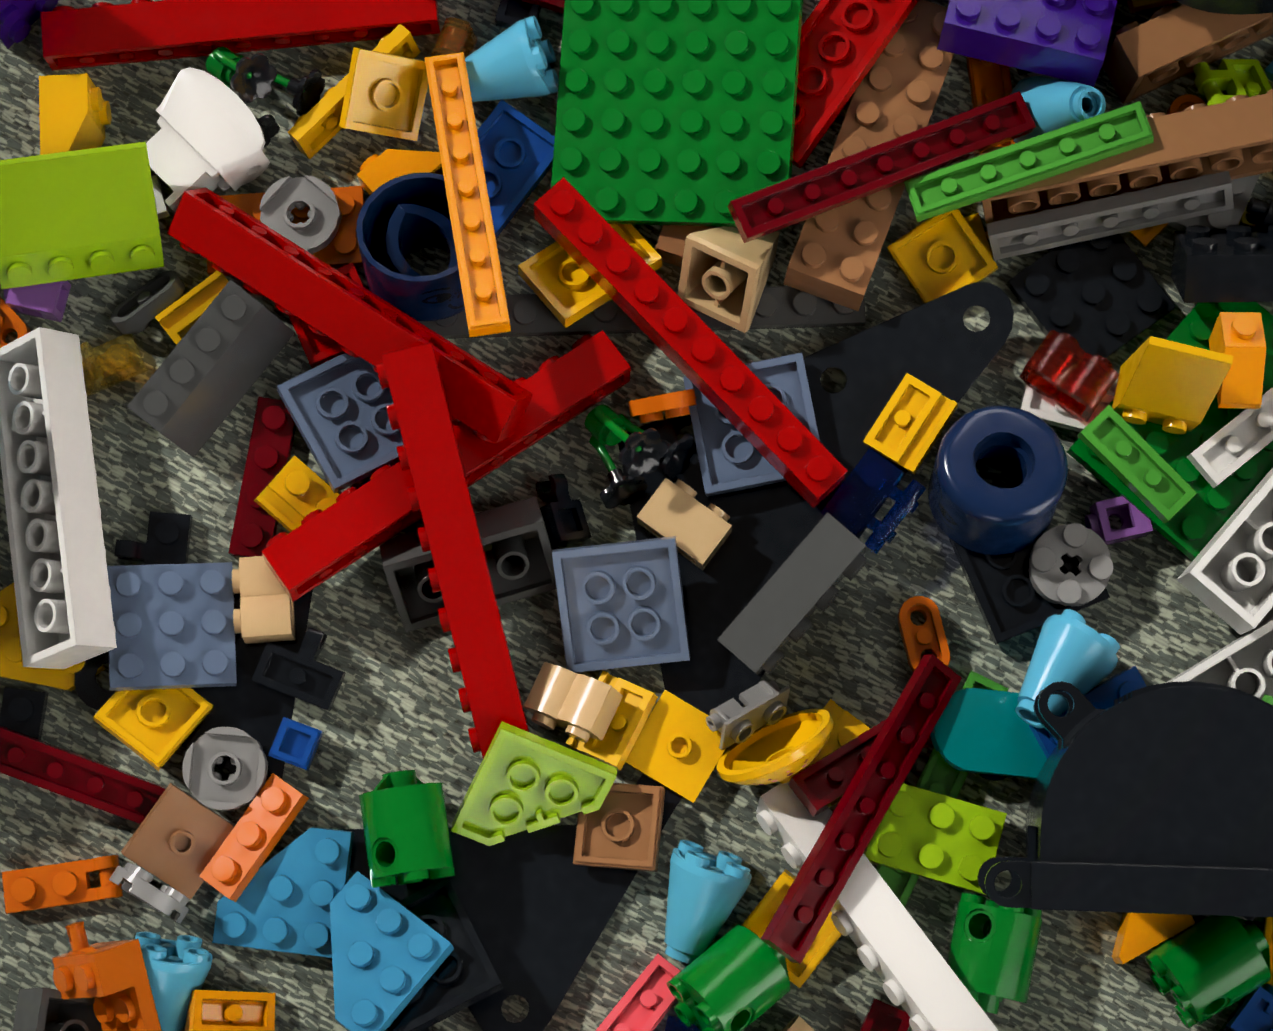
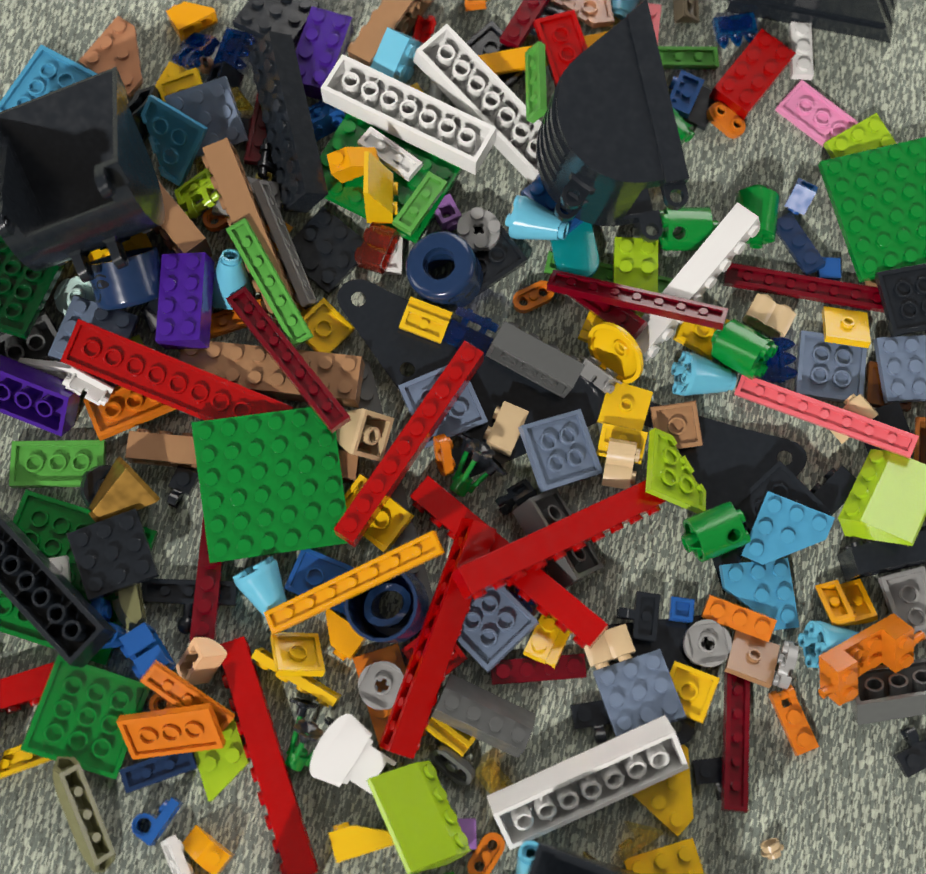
camera: 110 degrees left, 5 degrees down
(455, 37) = (253, 626): clear orange brick -> none

